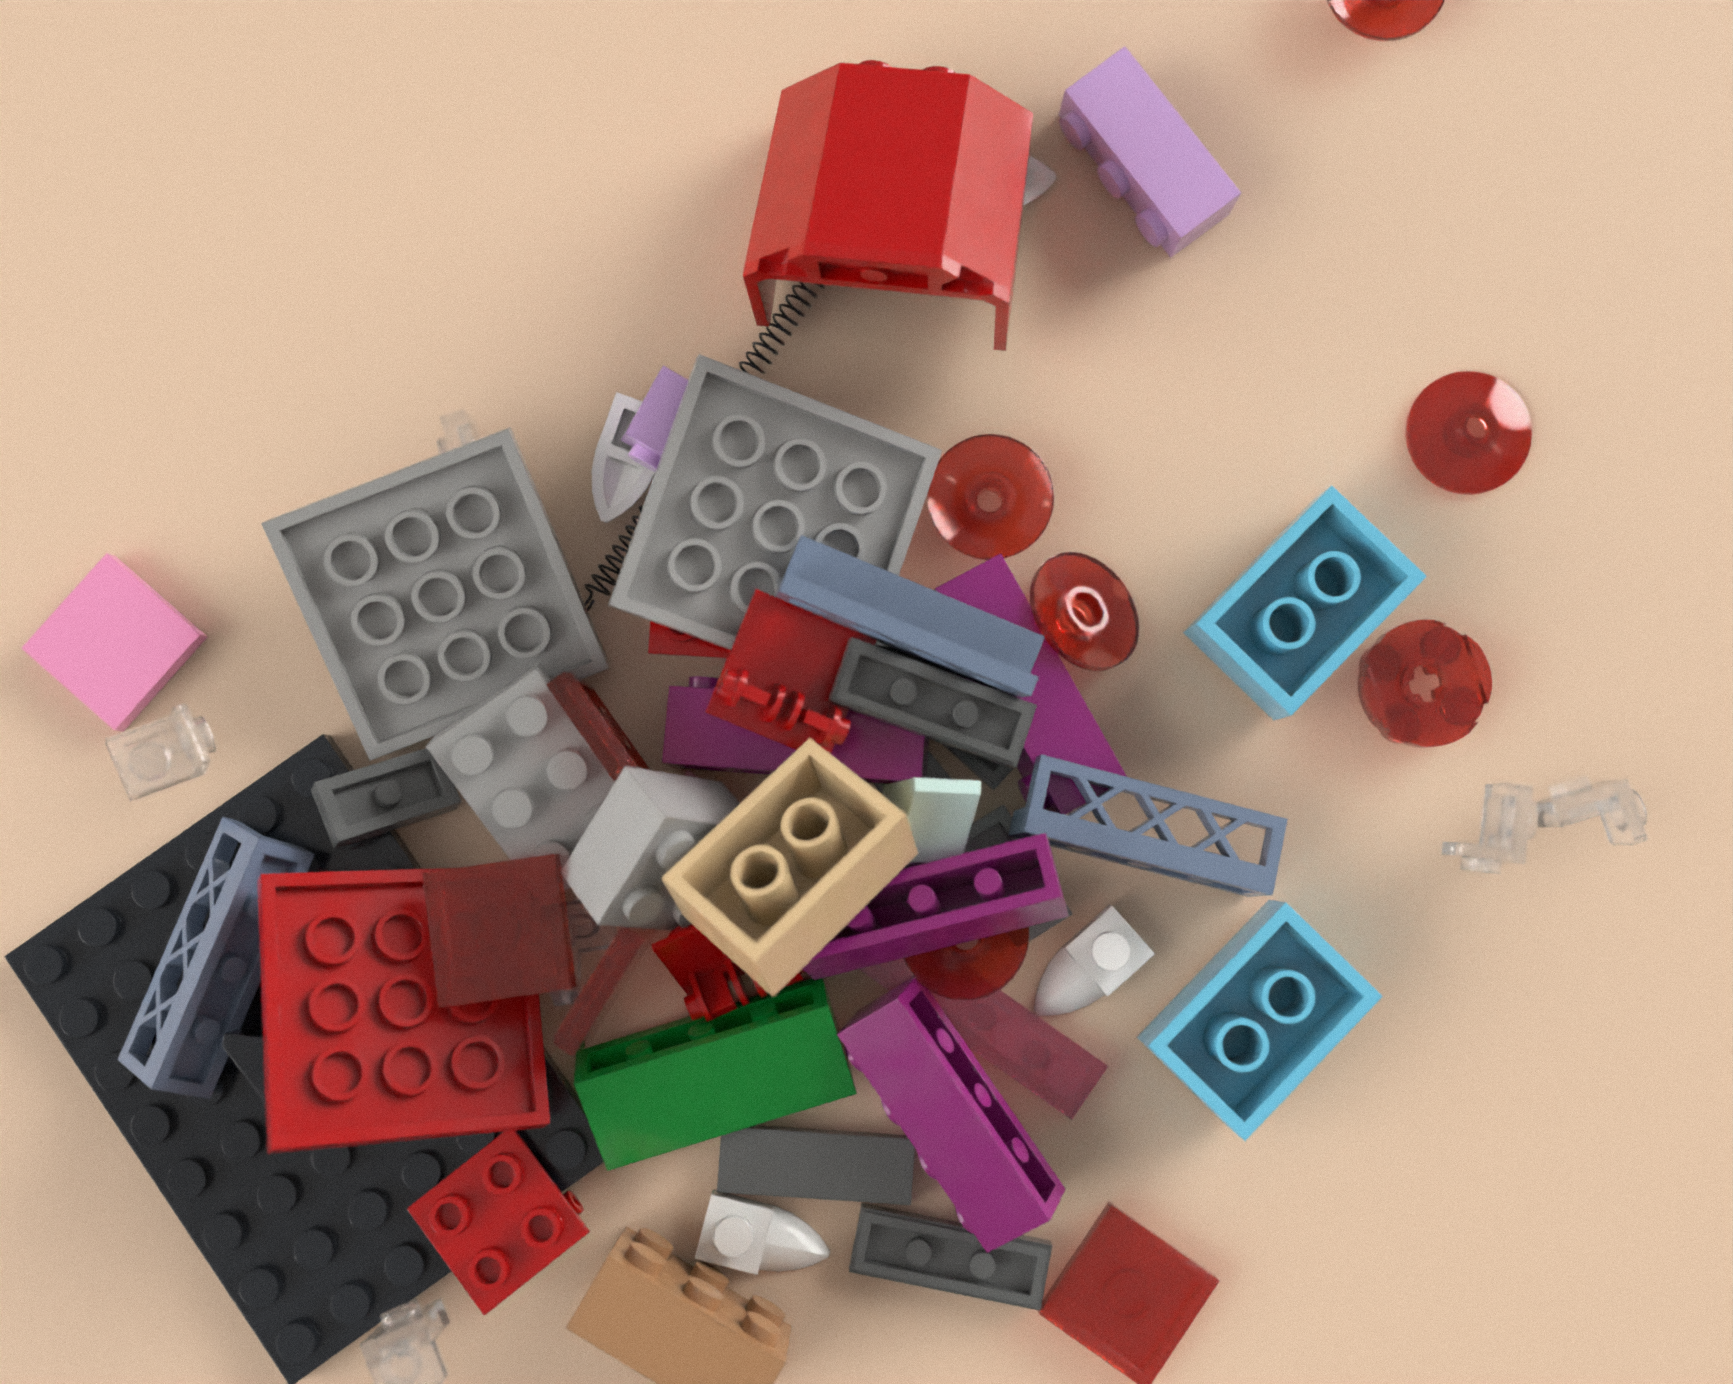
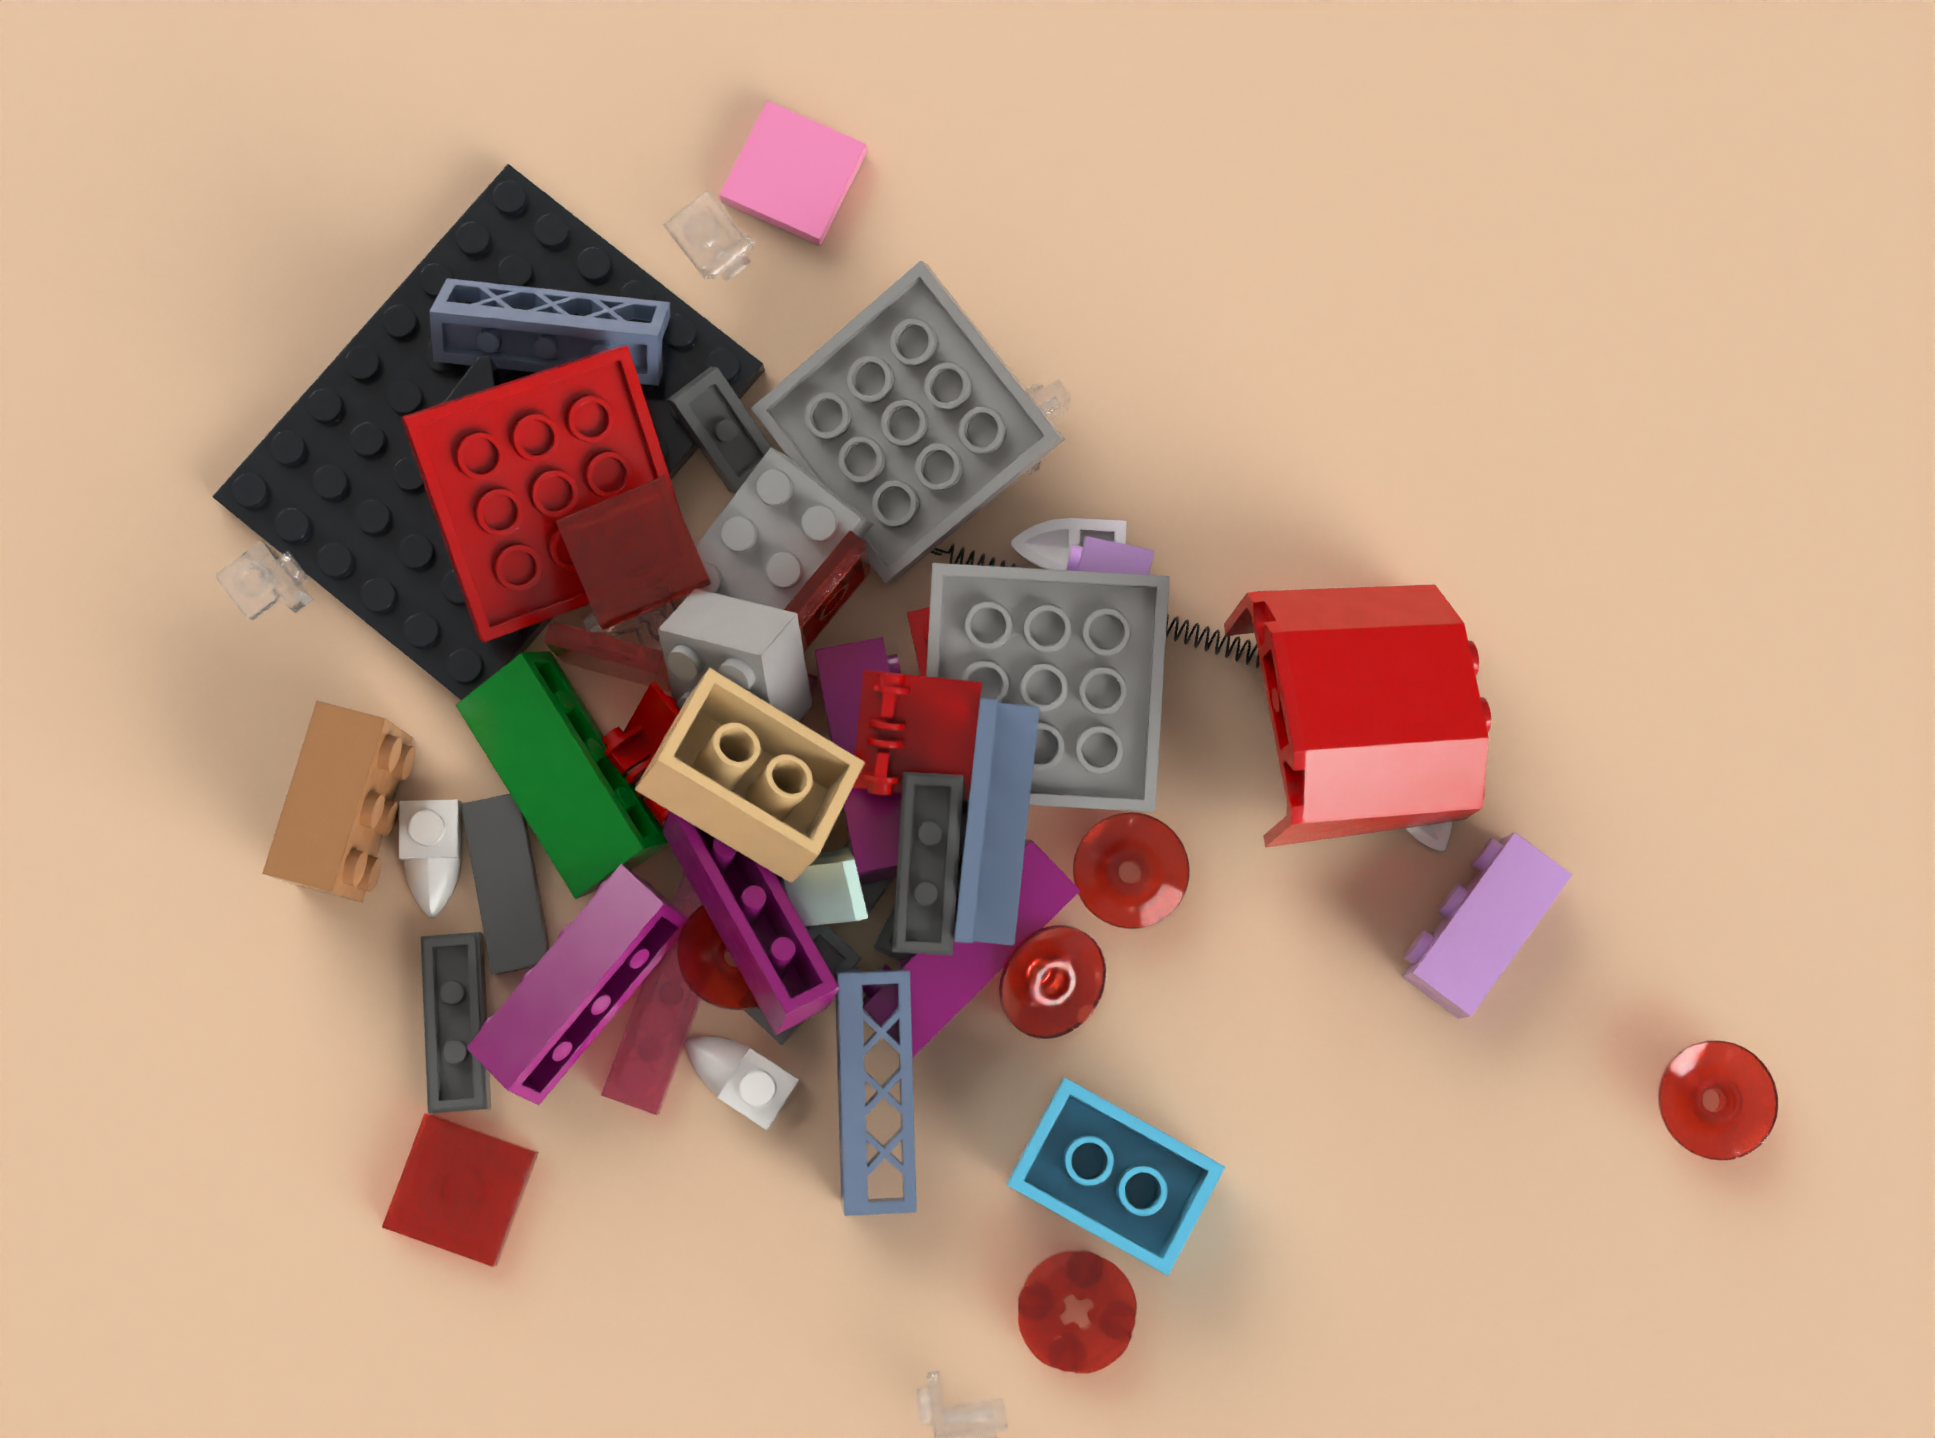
camera: 70 degrees right, 5 degrees down
(499, 1220) = (391, 626): red hinge -> none
(1259, 1017) = (731, 1233): medium azure brick -> none
(1445, 448) = (1293, 1288): clear red dish -> none

